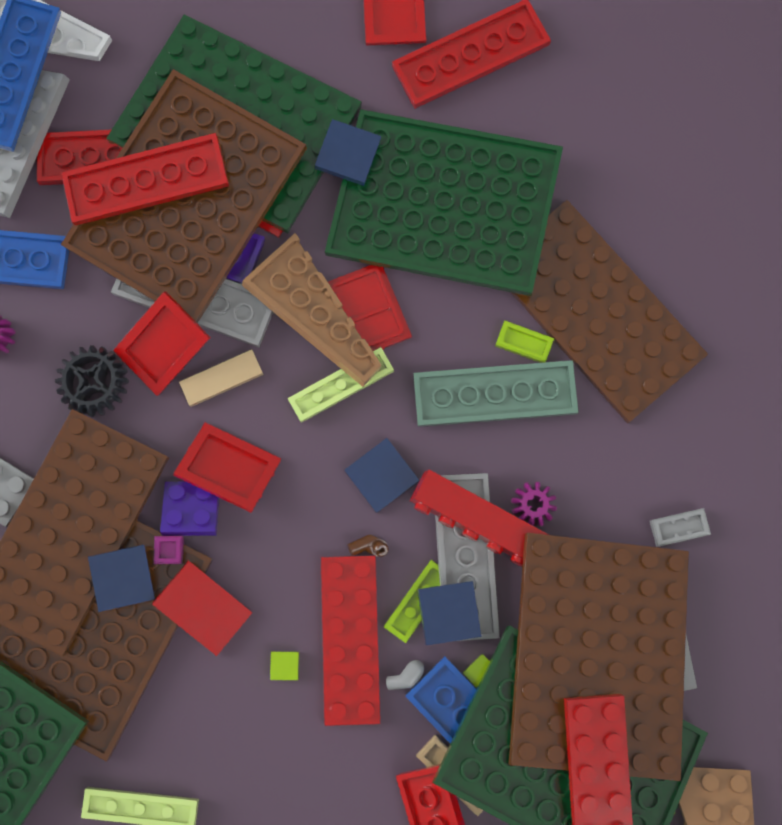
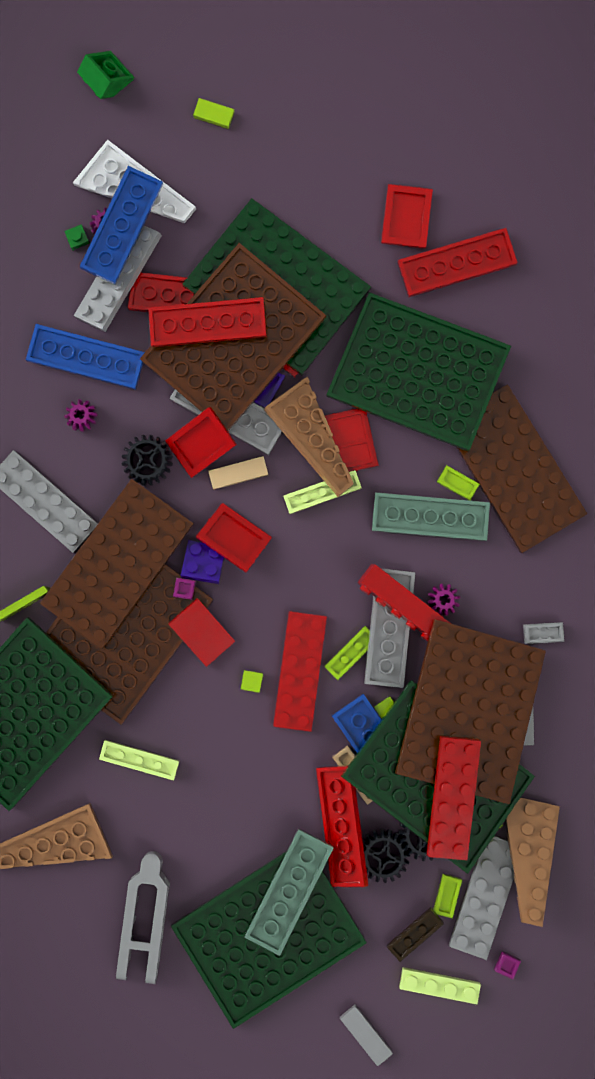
camera: 15 degrees right, 5 degrees up
(121, 578) = (149, 602): dark blue tile -> none
(347, 152) = (355, 324): dark blue tile -> none
(369, 544) = (323, 607): reddish brown arm -> none
(381, 475) = (340, 561): dark blue tile -> none
(407, 678) = (335, 704): light grey arm -> none
(449, 613) = (371, 664): dark blue tile -> none

